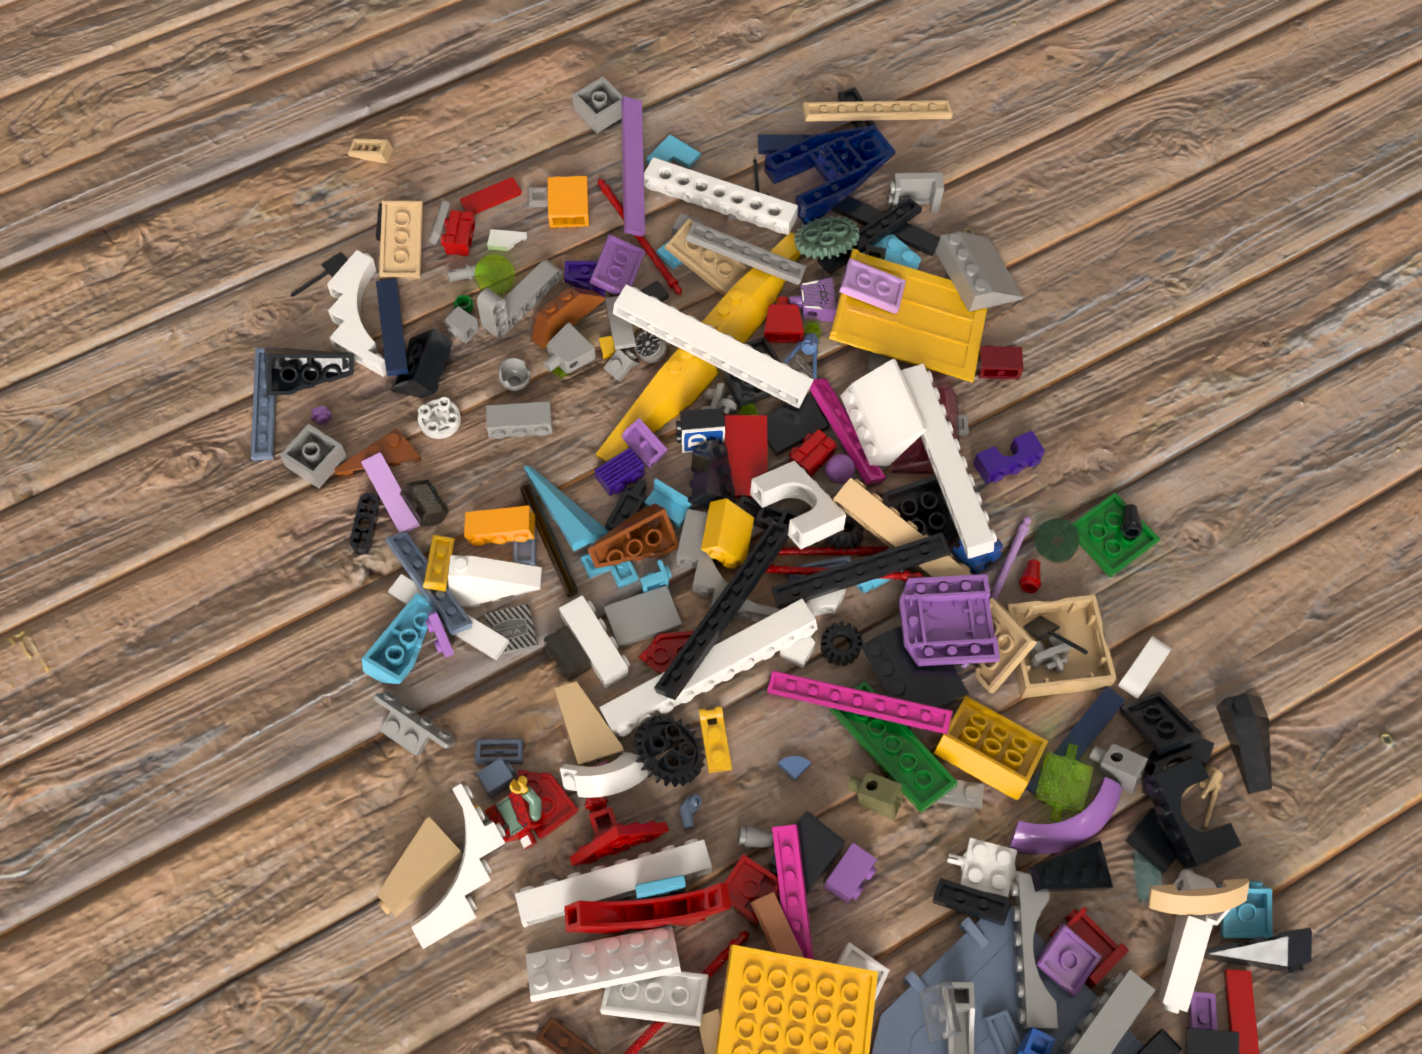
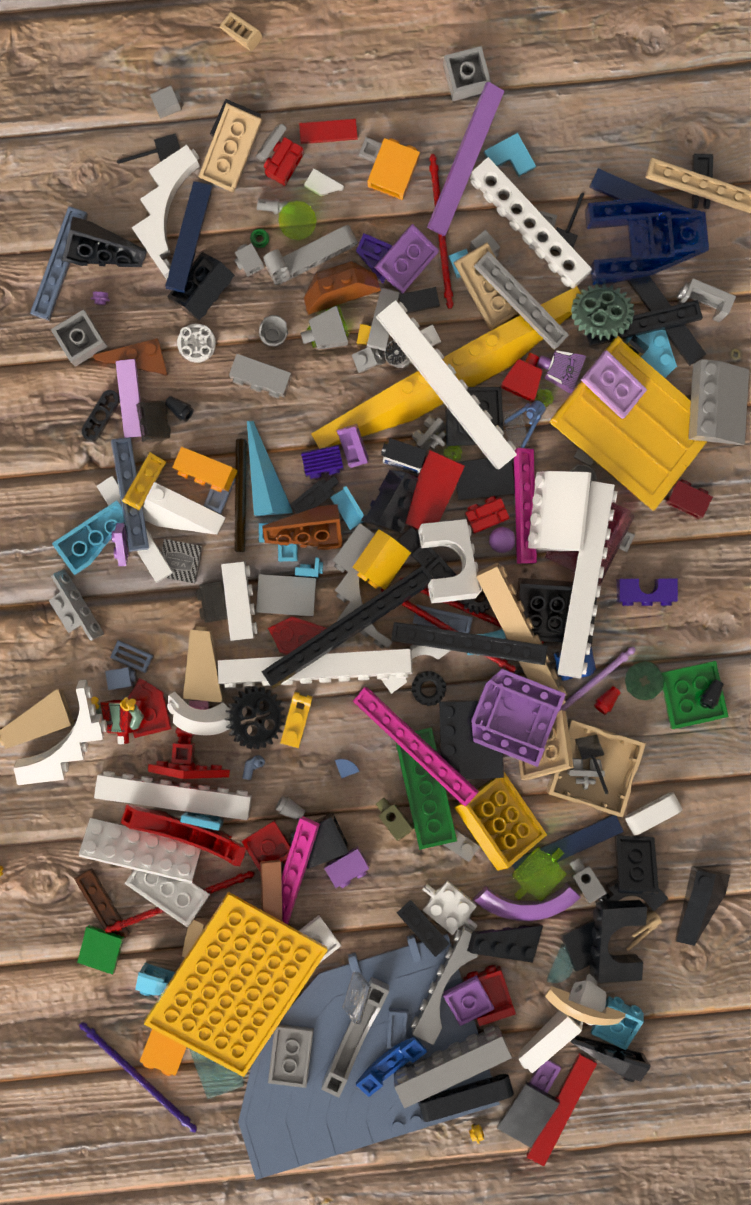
camera: 25 degrees right, 25 degrees up
(320, 227) = (166, 101): none -> light grey brick
(448, 482) = (179, 408): none -> black cone

